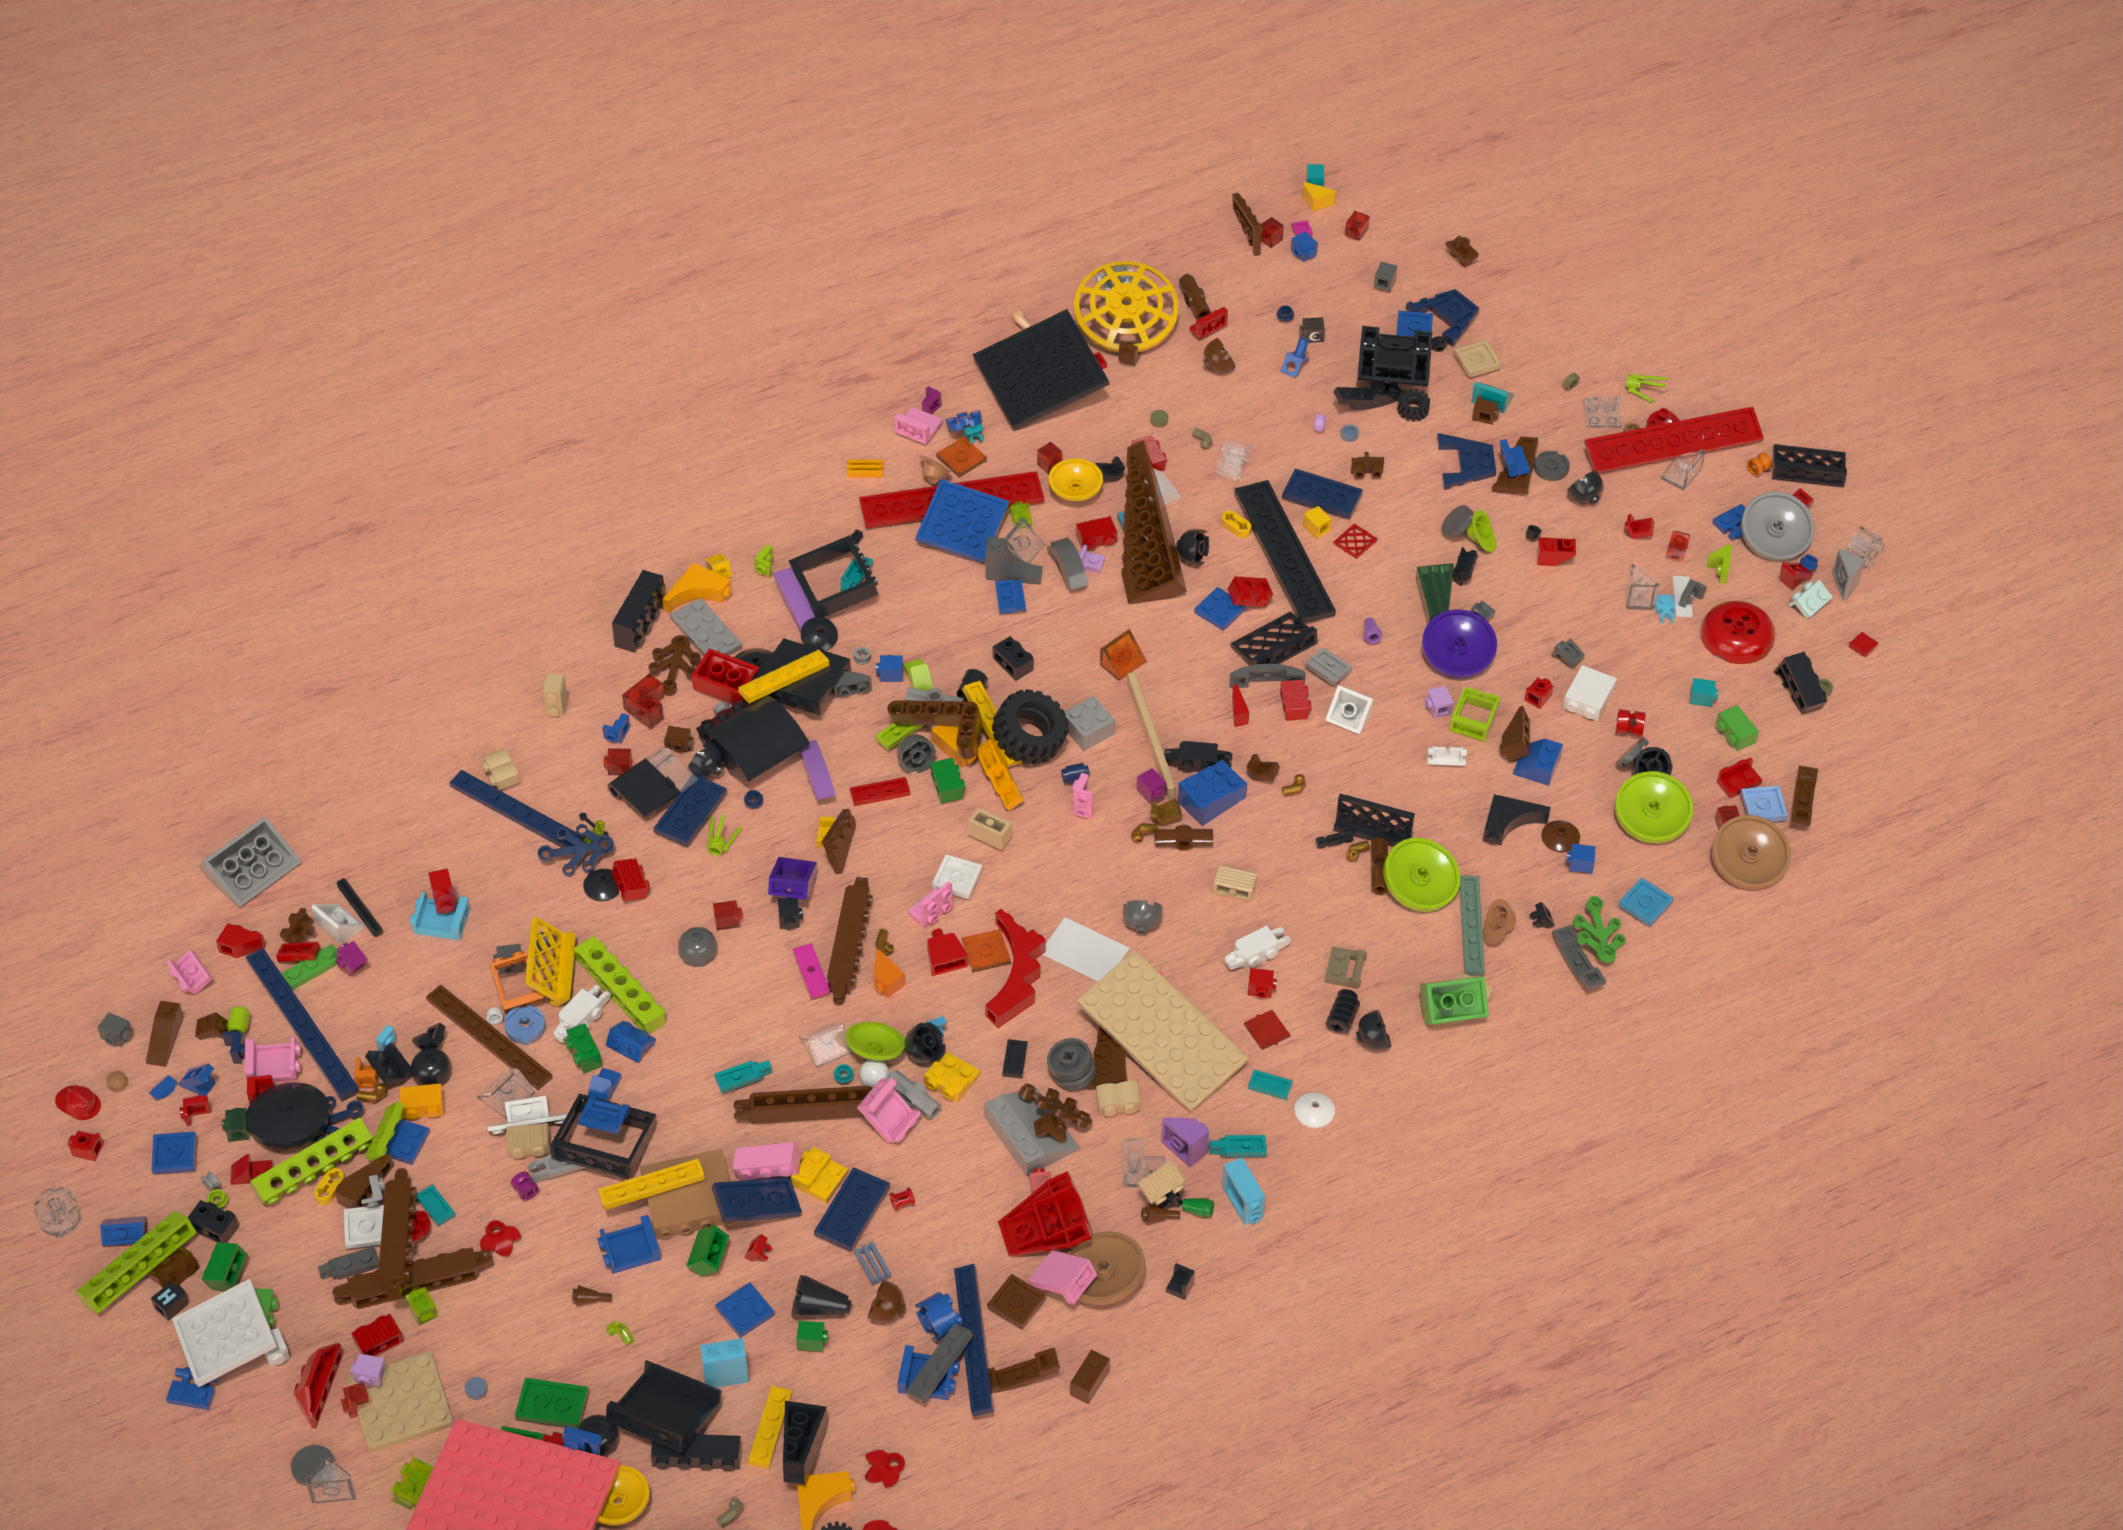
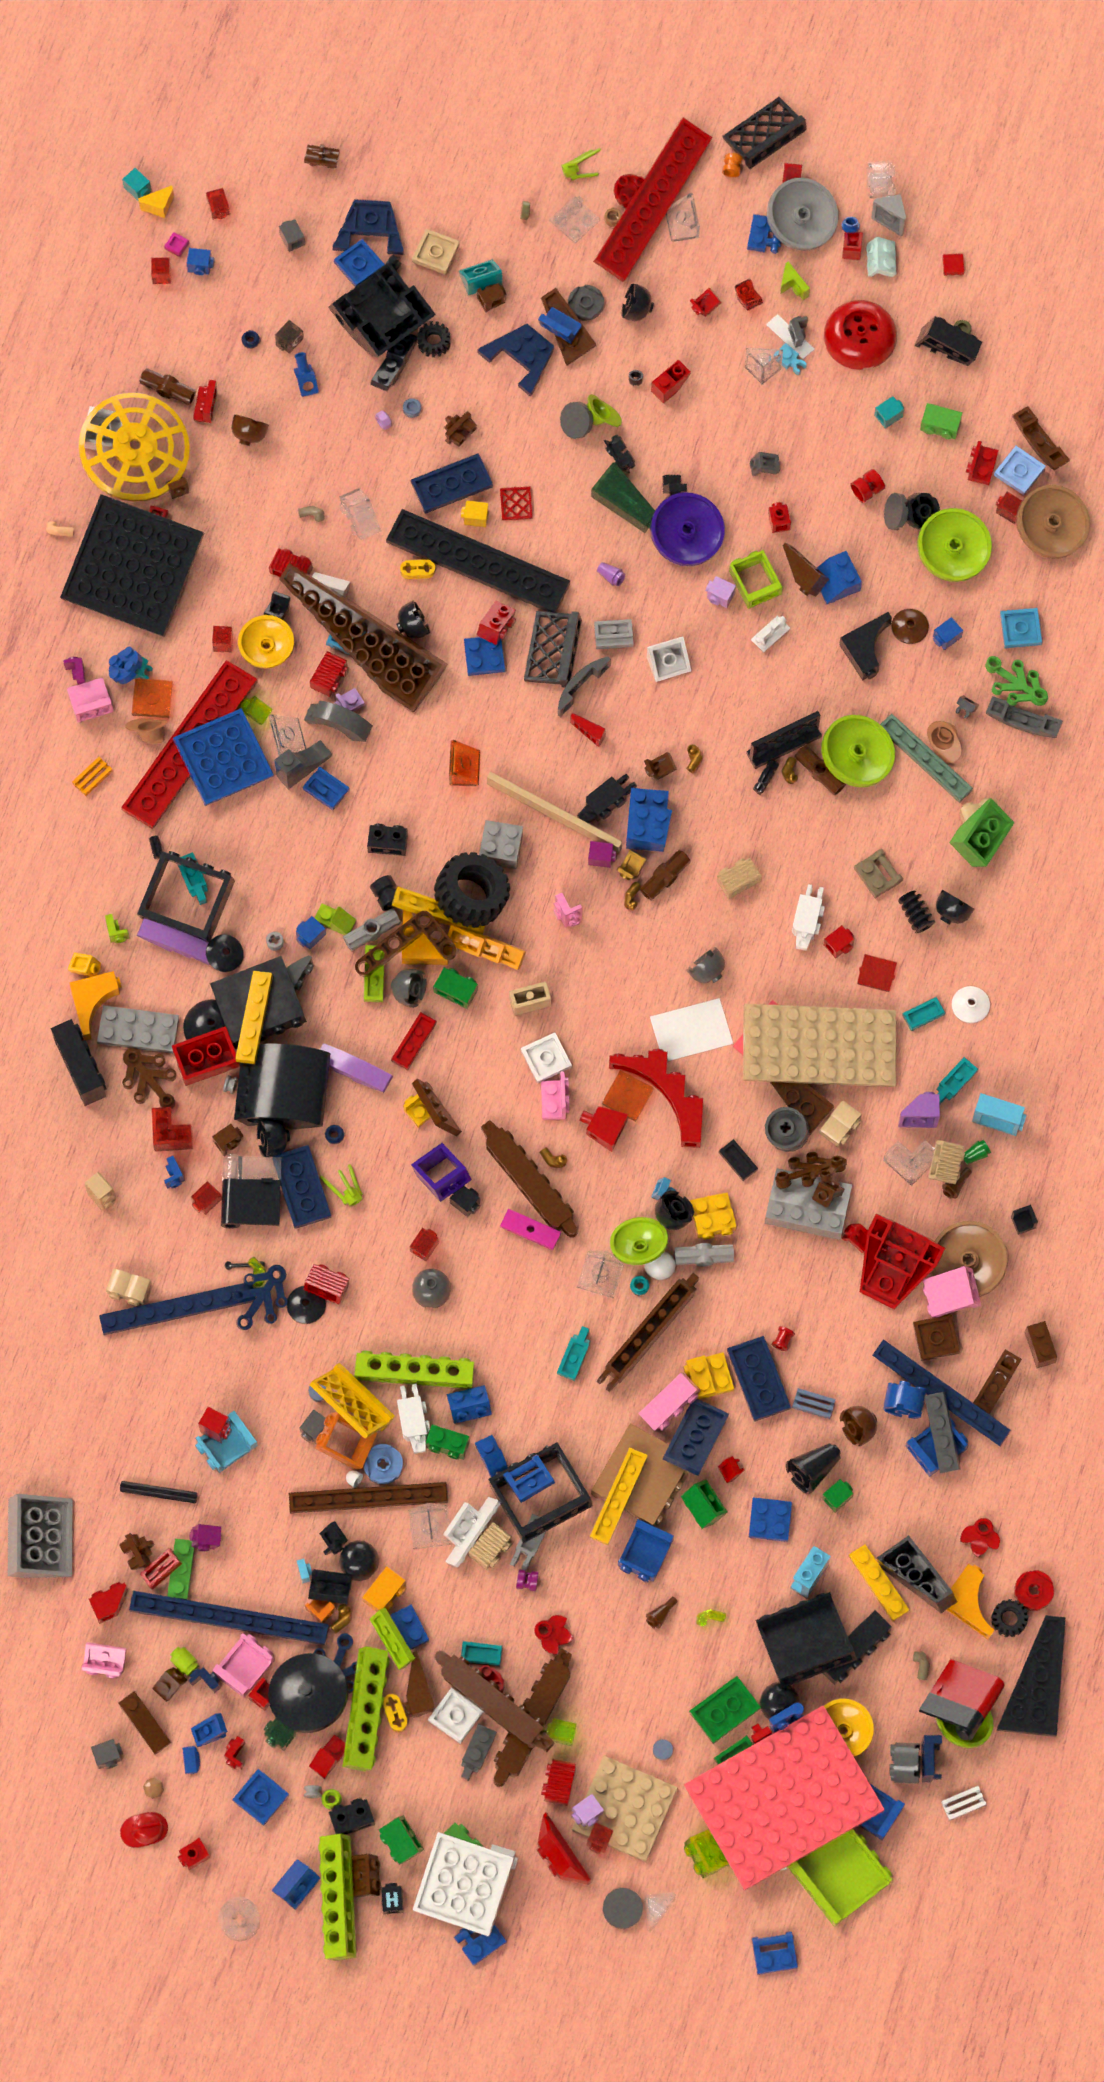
camera: 45 degrees left, 20 degrees up
(336, 922) = (158, 1518): white slope -> none
(377, 1186) = (444, 1689): light grey bracket -> none
(887, 975) = (585, 1182): orange slope -> none
(888, 1111) = (709, 1285): bright pink panel -> none
(1073, 772) = (535, 894): dark blue brick -> none
(1159, 418) = (260, 525): olive tile -> none
(1248, 221) = (134, 277): reddish brown wing -> none
(1295, 700) = (621, 685): red brick -> none
(1589, 693) = (814, 486): white brick -> none

